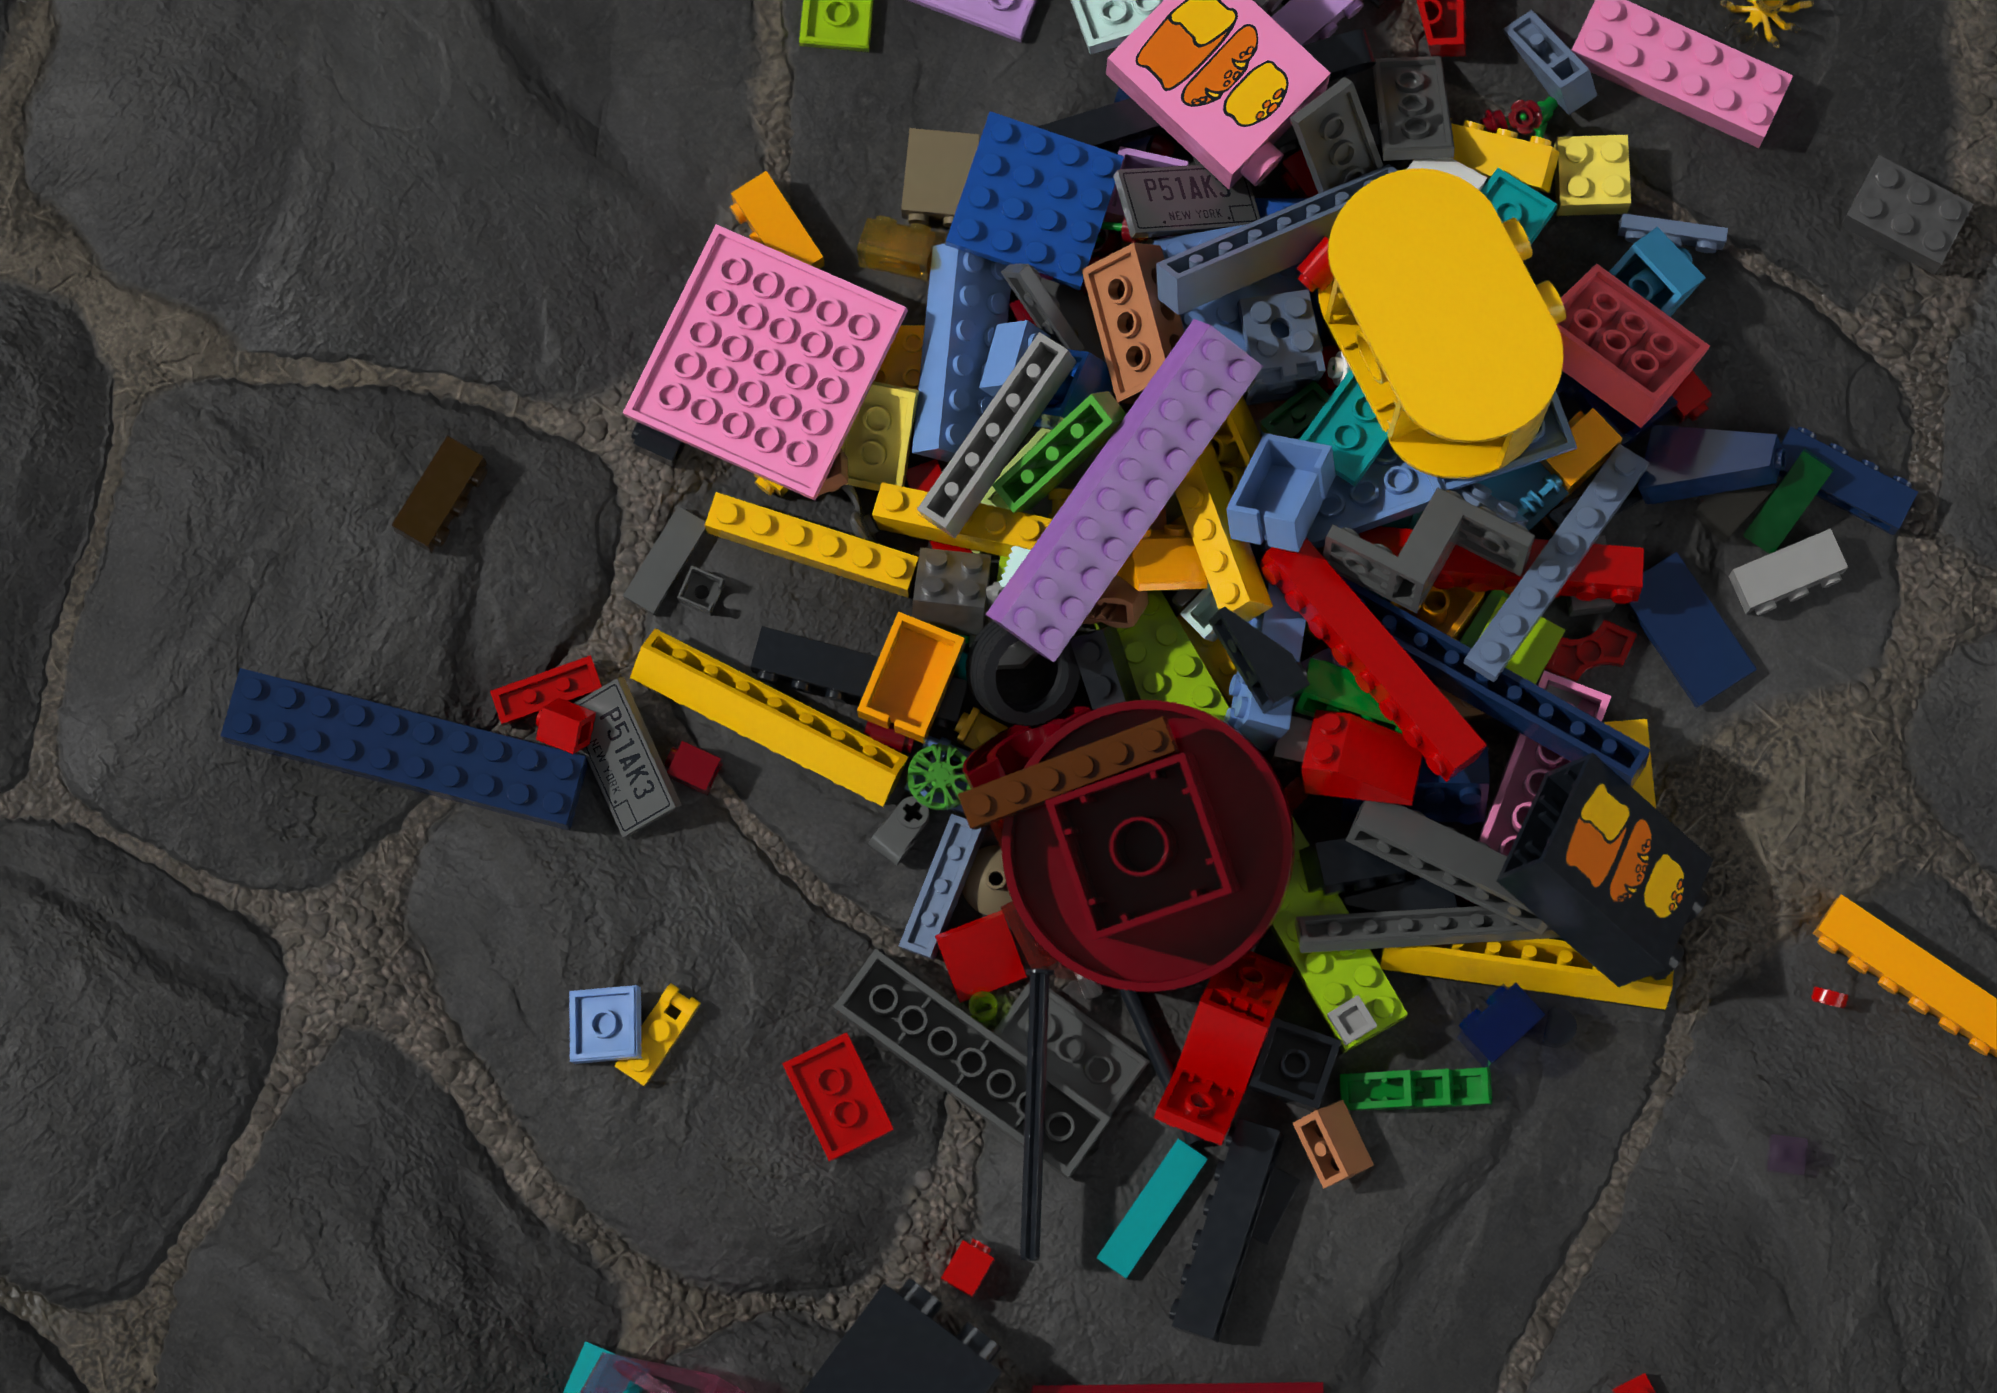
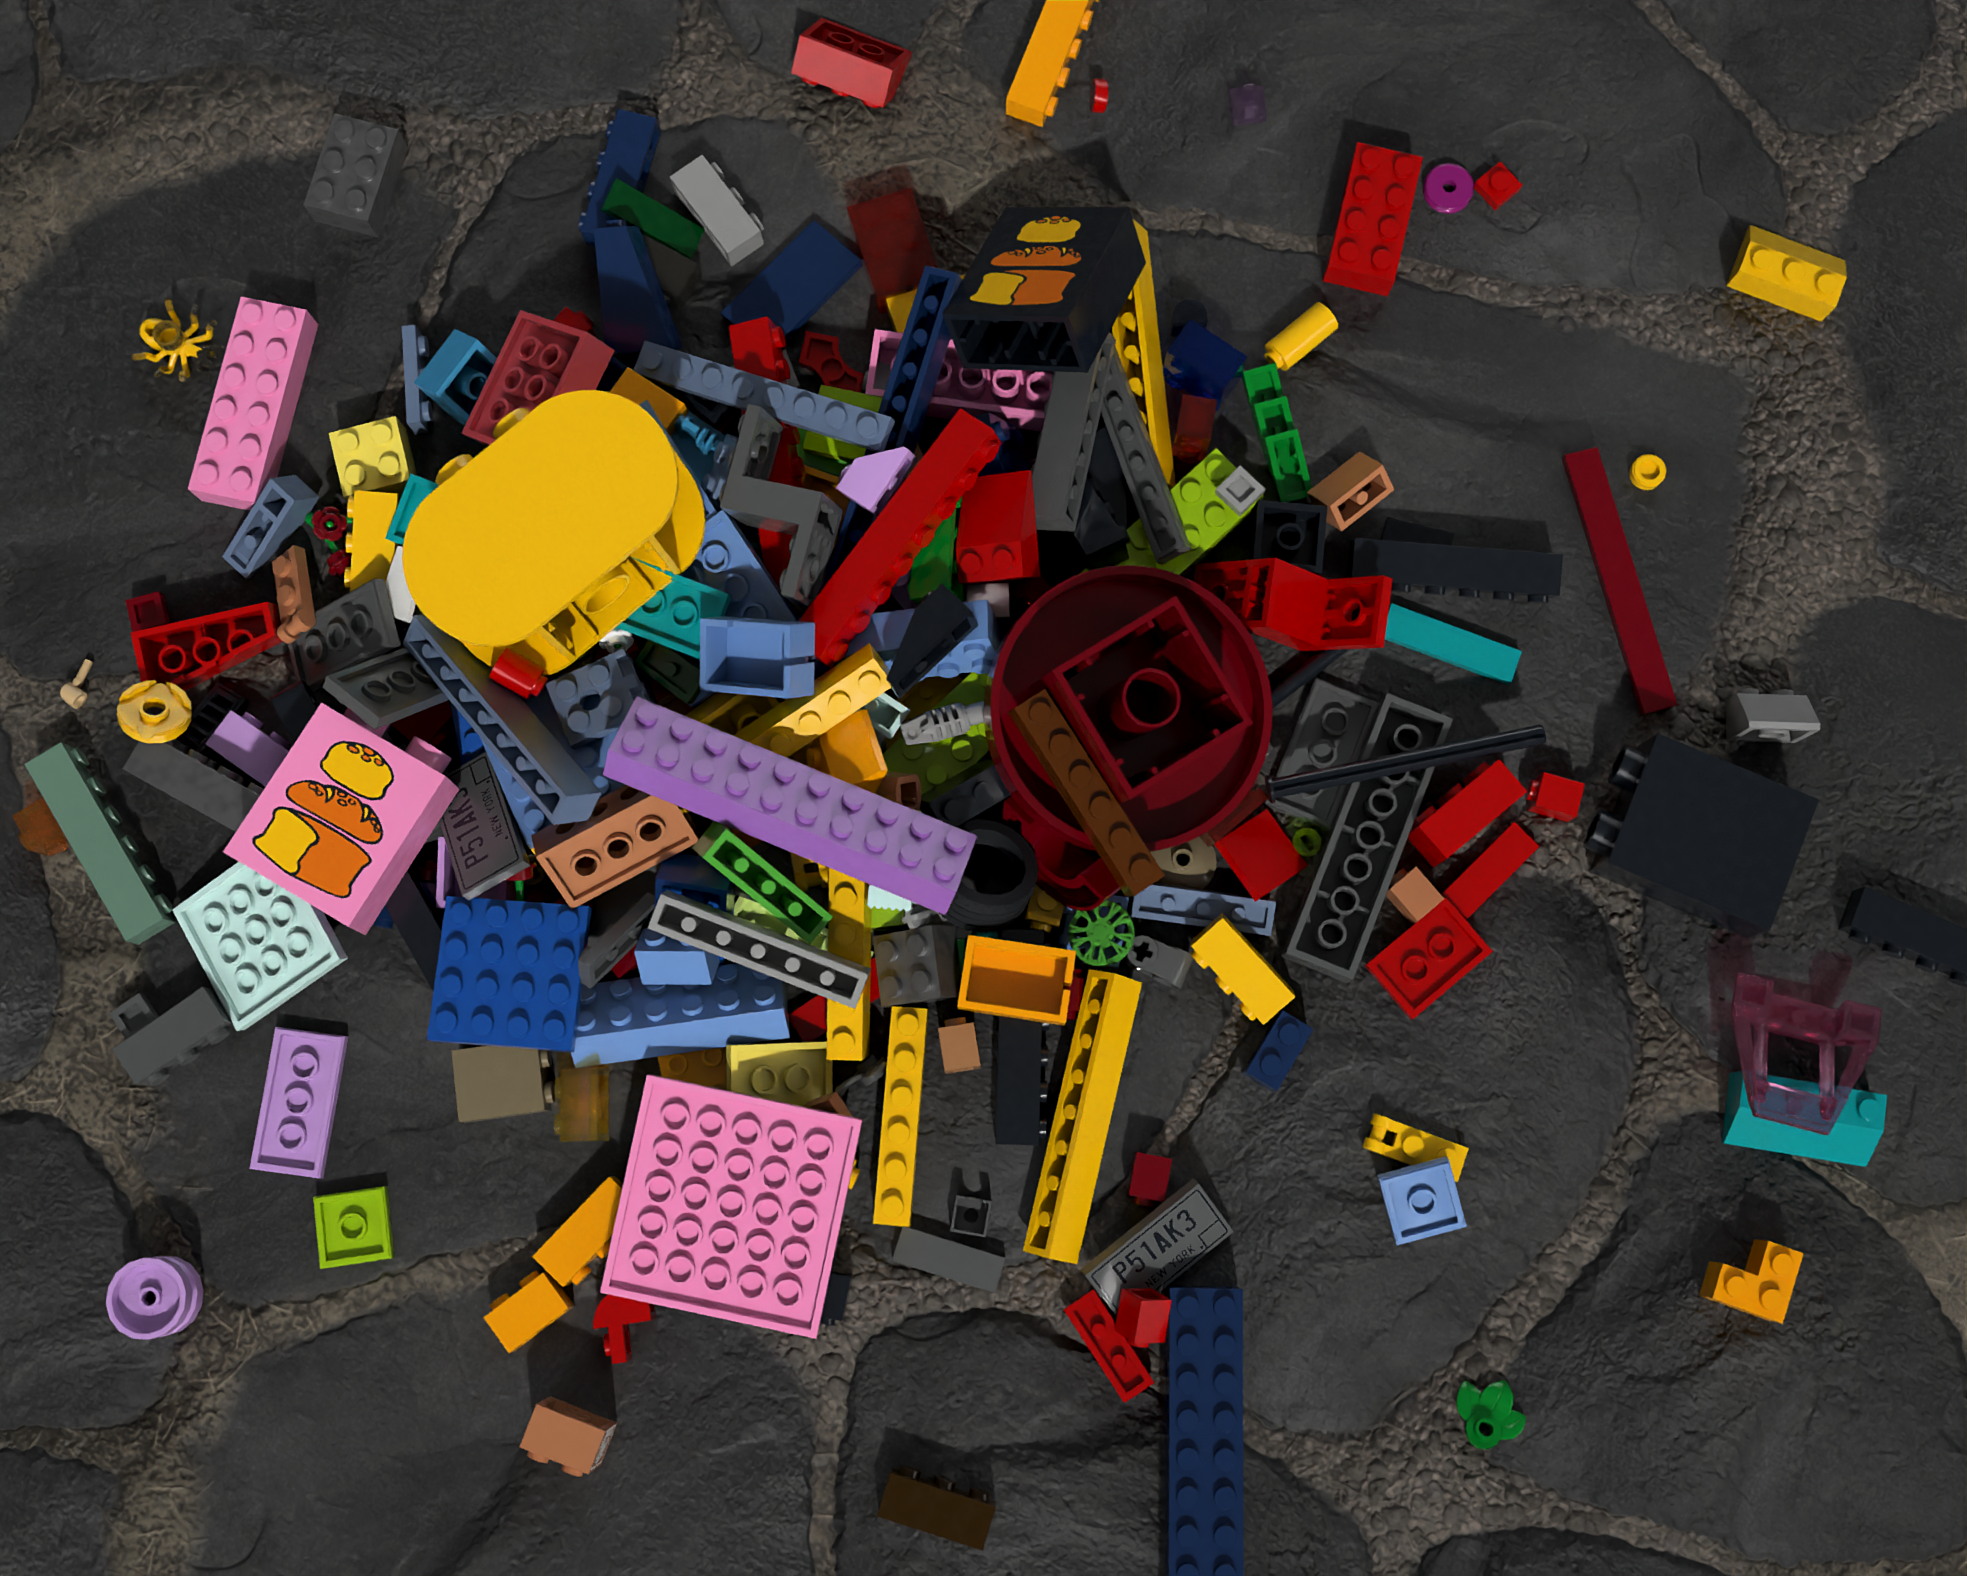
camera: 105 degrees left, 0 degrees up
(393, 1041) = (1490, 1408): none -> green plate
(435, 1326) = (1763, 1286): none -> light orange brick
(593, 170) = (567, 1436): none -> nougat brick
(689, 238) = (616, 1314): none -> red brick
(717, 157) = (528, 1310): none -> light orange brick
(783, 921) = (1277, 1051): none -> dark blue brick
(863, 613) = (959, 1046): none -> medium nougat brick
(871, 906) = (1241, 970): none -> yellow brick
(905, 1097) = (1413, 894): none -> nougat brick
(910, 1184) = (1490, 870): none -> red tile
(972, 1166) = (1465, 811): none -> red brick
(1182, 664) = (942, 723): none -> light grey hinge
(1434, 997) = (1193, 428): none -> clear red brick
(1436, 648) = (876, 478): none -> lavender slope
(1470, 70) = (293, 594): none -> nougat plate
(1512, 1138) = (1300, 336): none -> yellow brick
(1625, 1248) = (1372, 219): none -> red brick
(1630, 1344) = (1452, 175): none -> magenta piece
(1704, 742) = (891, 244): none -> clear red piece
(1925, 747) = (850, 62): none -> slope

